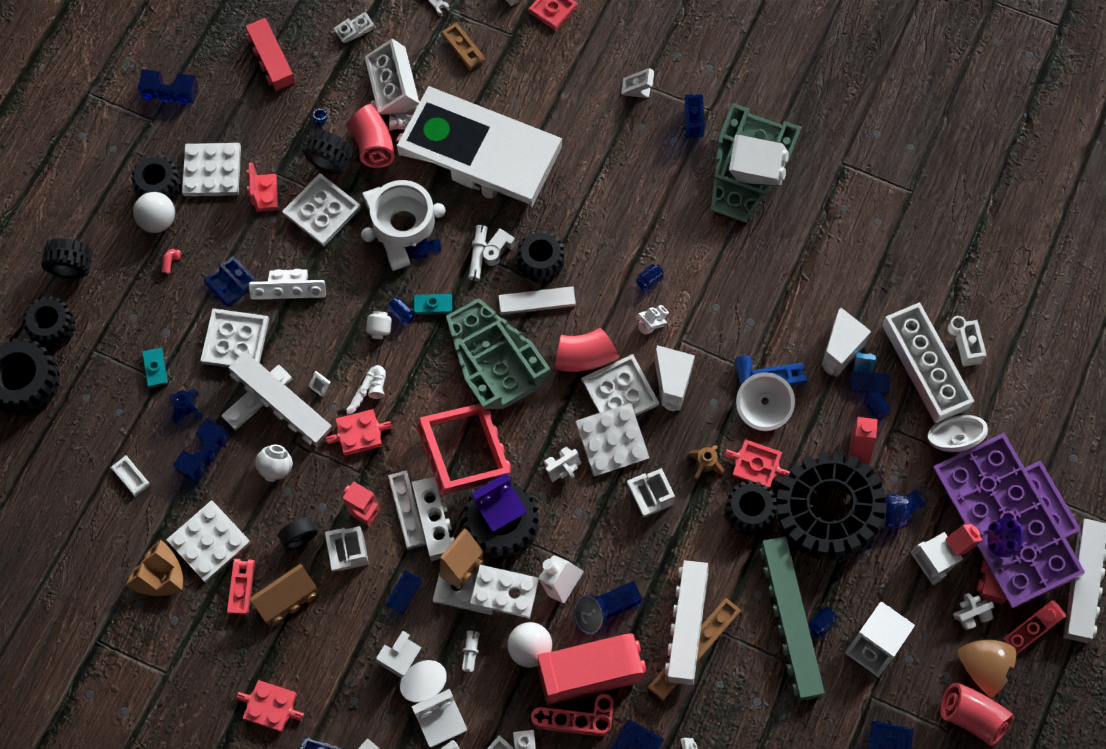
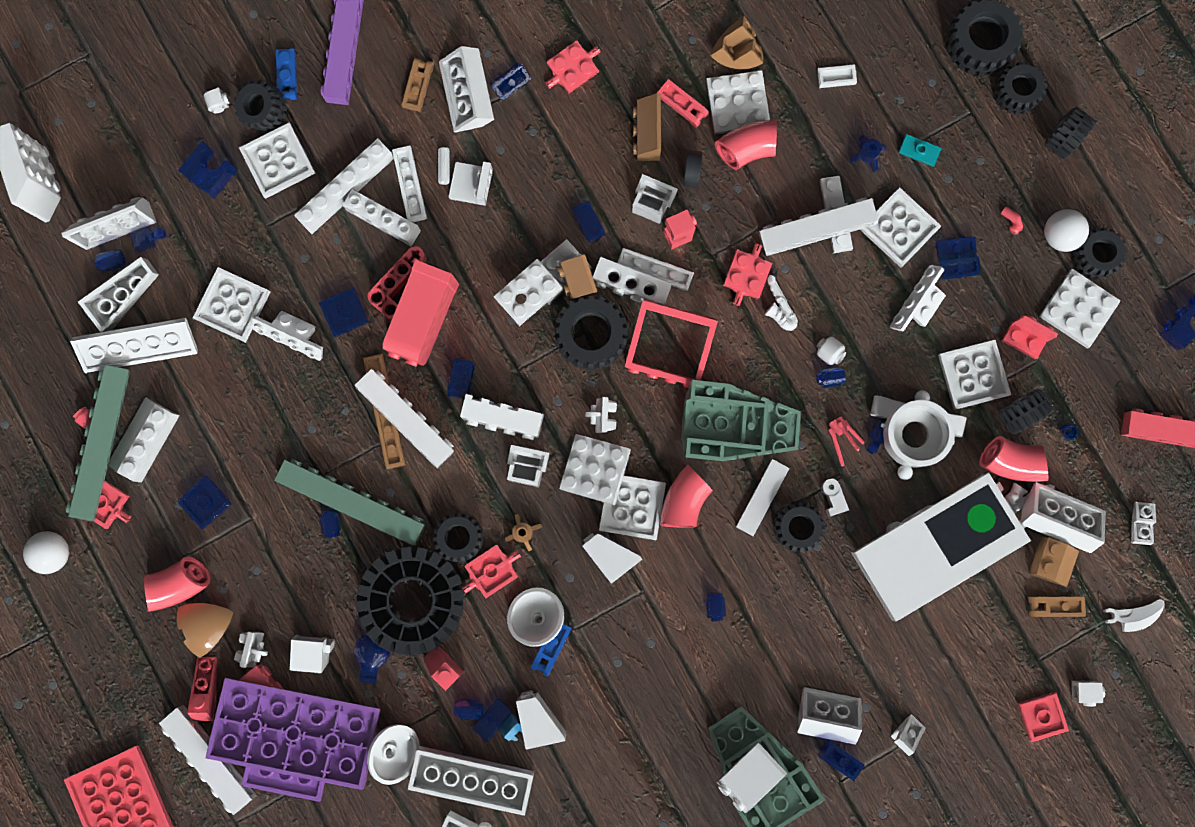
camera: 130 degrees right, 15 degrees up
(194, 464) = (823, 156): clear blue arch -> none
(242, 502) = (748, 143): none -> coral brick
(273, 463) = (766, 188): white plant -> none
(319, 384) = (812, 270): white slope -> none
(400, 656) = (537, 181): white plate -> none
(423, 681) = (507, 188): white shield -> none
(430, 68) = (1054, 561): none -> medium nougat slope
(433, 304) = (819, 409): teal plate -> none
(437, 279) = (841, 427): none -> coral plant
(470, 651) = (505, 240): white axle -> none
(477, 255) = (846, 483): white pin -> none
(498, 503) = (597, 333): dark purple bracket -> none
(527, 642) = (474, 284): white piece -> none
(559, 578) = (511, 346): white torso -> none
(590, 614) = (465, 348): black tile -> none
(625, 543) = (501, 417): none -> white wedge
(652, 319) = (675, 579): white hips -> none
(667, 144) = (830, 716): none -> white slope
(743, 368) = (579, 623): blue cone -> none
(879, 639) = (284, 558): white slope -> none
(964, 539) = (301, 682): coral brick -> none
(1005, 528) = (281, 722): dark purple plate -> none

